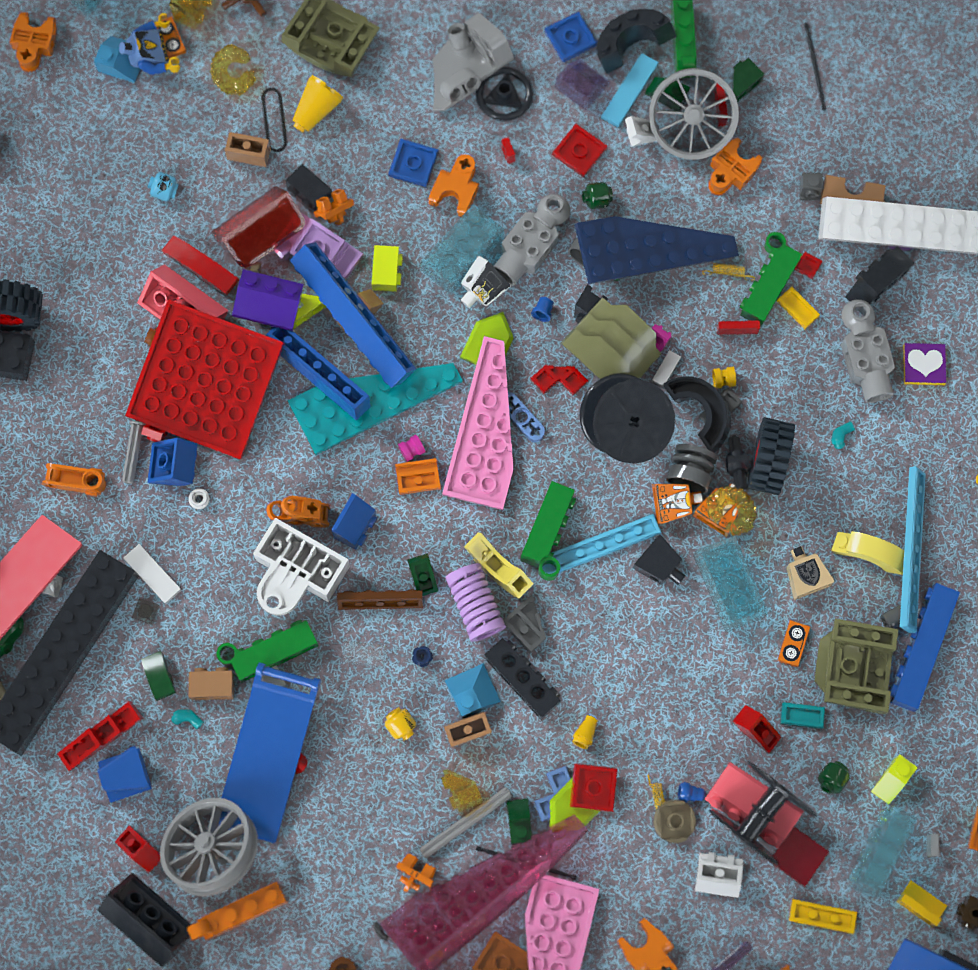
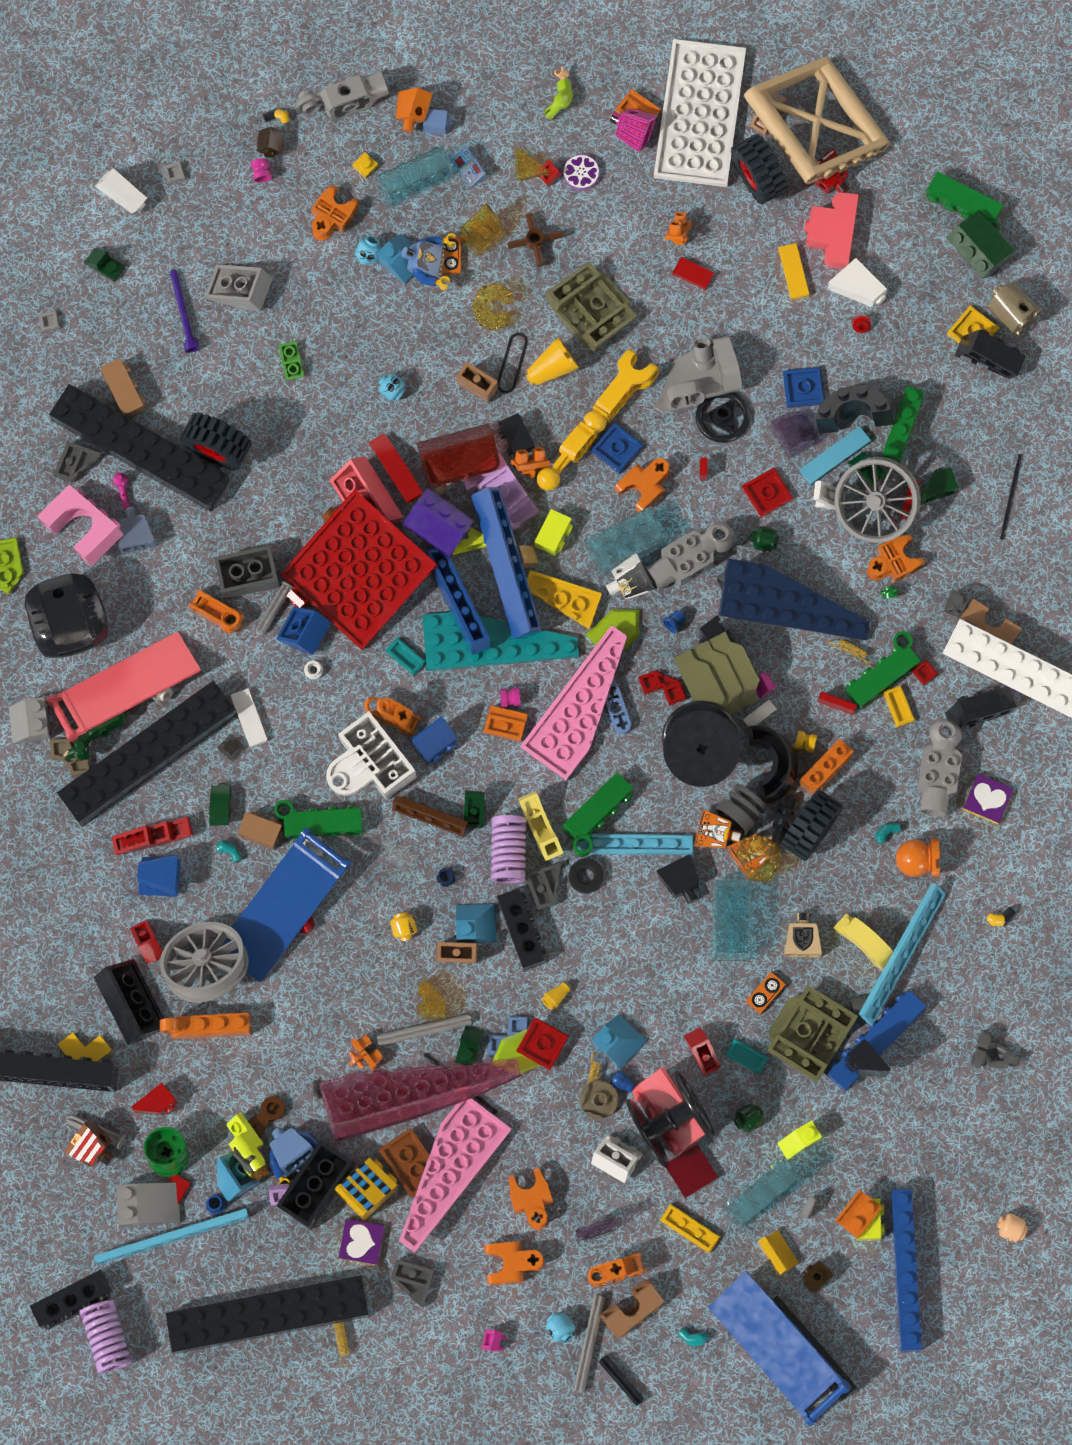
camera: 30 degrees right, 0 degrees up
(49, 199) = (291, 360): none -> bright green slope
(83, 62) = (367, 250): none -> medium azure head
(90, 426) = (246, 572): none -> dark grey brick
(287, 449) = (405, 656): none -> teal tile
(387, 125) = (603, 411): none -> yellow piece
(425, 327) = (566, 597): none -> yellow wing
(572, 588) = (585, 887): none -> black tyre
(668, 752) = (618, 1041): none -> dark azure slope
(741, 200) = (889, 592): none -> green plate
(756, 394) = (826, 767): none -> orange brick
(885, 448) = (917, 857): none -> orange tile
(930, 671) = (866, 1061): none -> black slope

